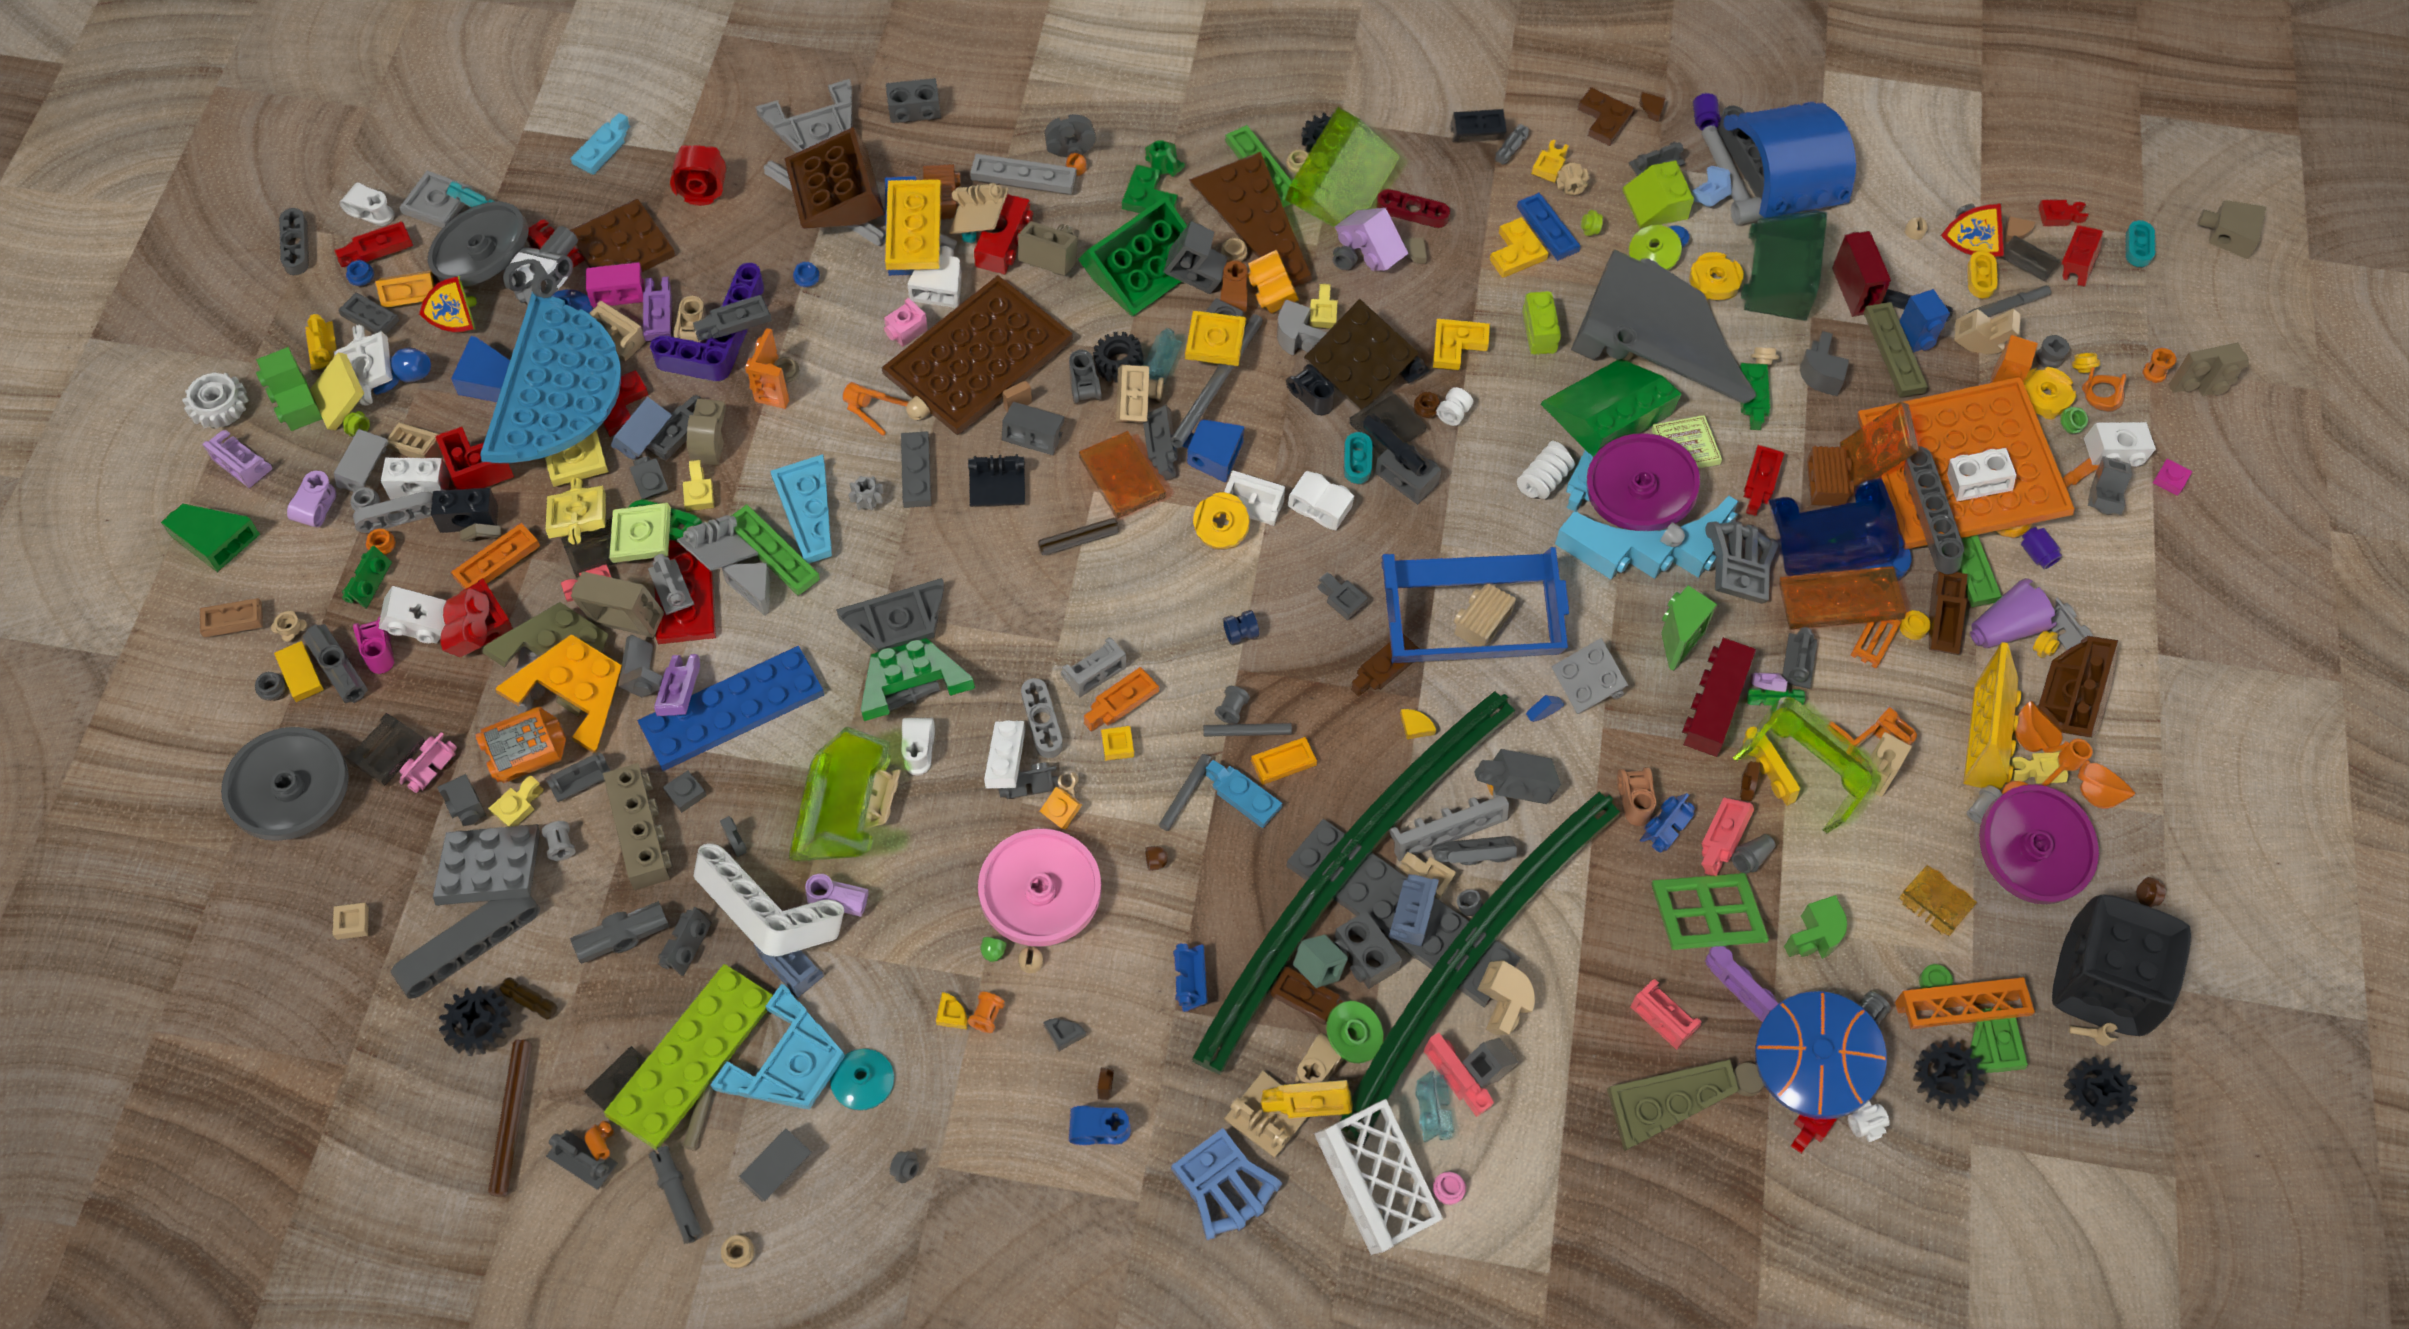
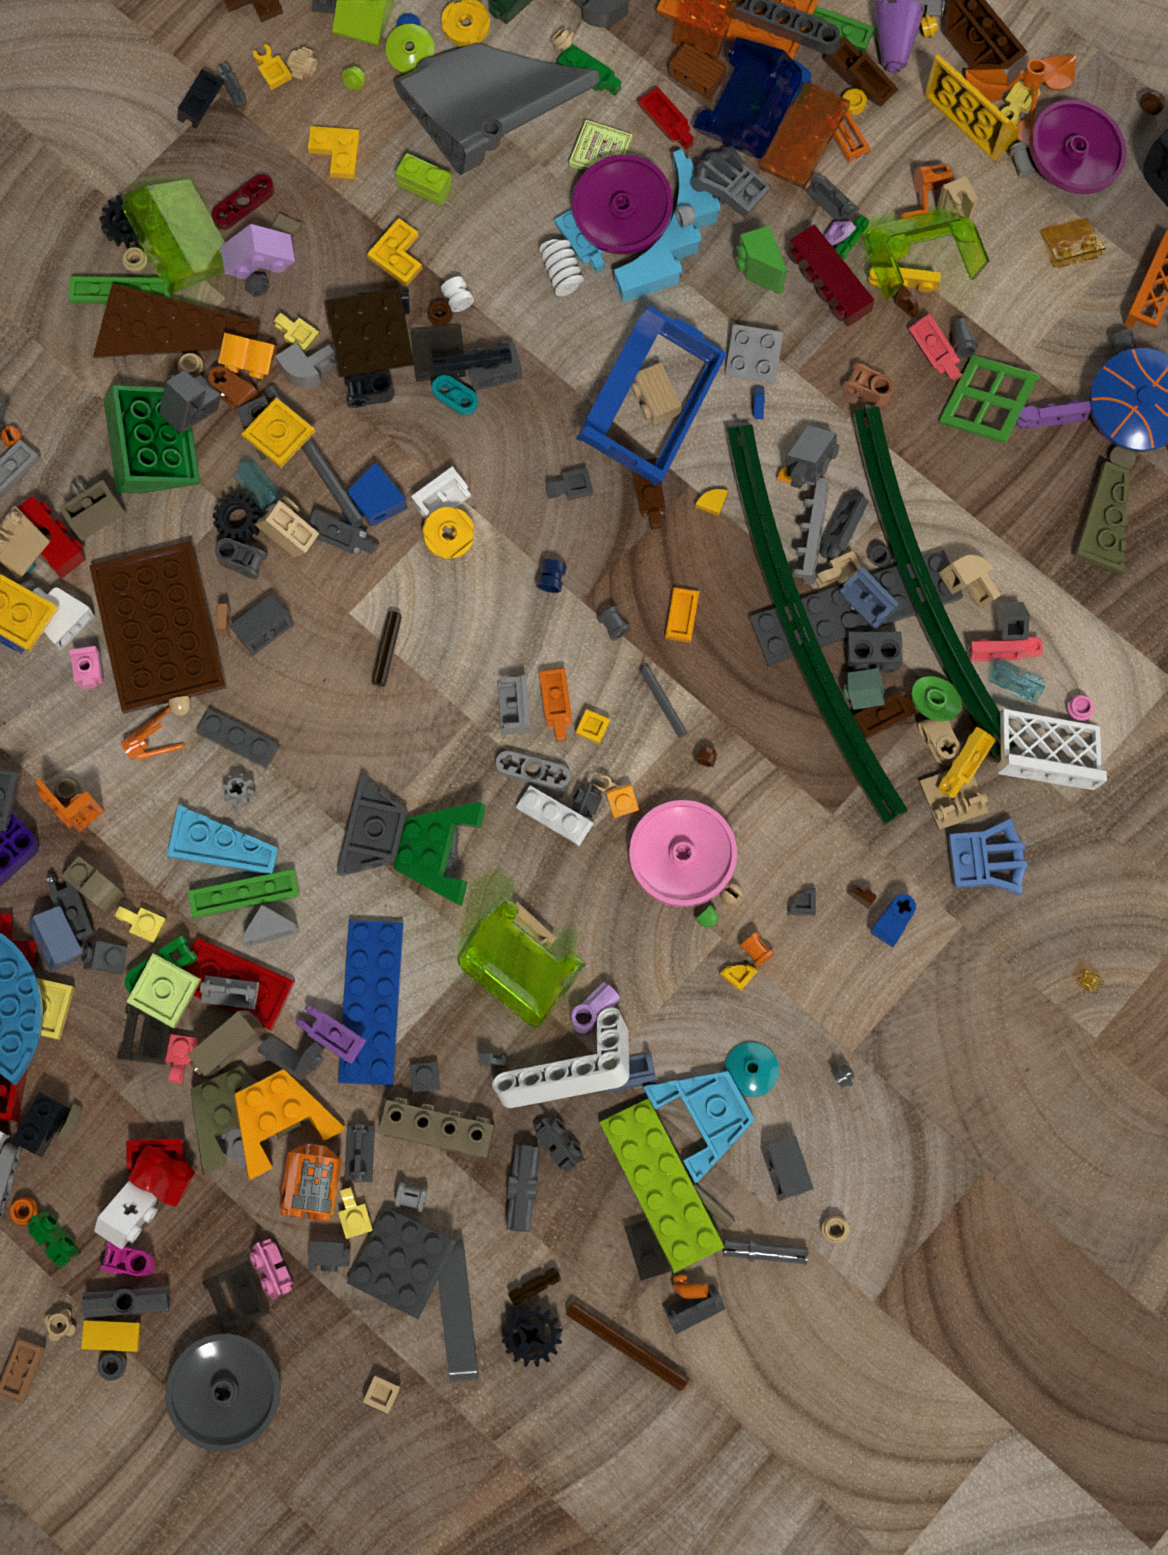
camera: 55 degrees left, 15 degrees up
(496, 557) = (105, 1122): orange plate -> none
(575, 511) = (105, 1033): light yellow plate -> none
(716, 543) = (217, 934): light grey hinge -> none
(917, 744) = (495, 873): white piece -> none
(996, 481) = (292, 681): black hinge -> none
(1122, 474) = (352, 582): clear orange plate -> none
(1142, 190) = (79, 403): green plate -> none
(1163, 156) = (57, 364): green piece -> none
(1191, 984) = (819, 786): blue hinge -> none
(1243, 793) = (692, 661): dark azure hinge -> none
(1247, 729) = (639, 625): dark grey bar -> none
(1321, 500) = (476, 447): white brick -> none
(1548, 226) = (331, 112): blue tile -> none
(1612, 404) = (533, 179): green slope -> none
(1664, 1015) = (1045, 481): coral hinge -> none
(1675, 813) = (899, 370): blue hinge -> none
(1825, 929) = (1049, 330): bright green brick -> none
(1935, 976) = (1126, 286): bright green tile -> none

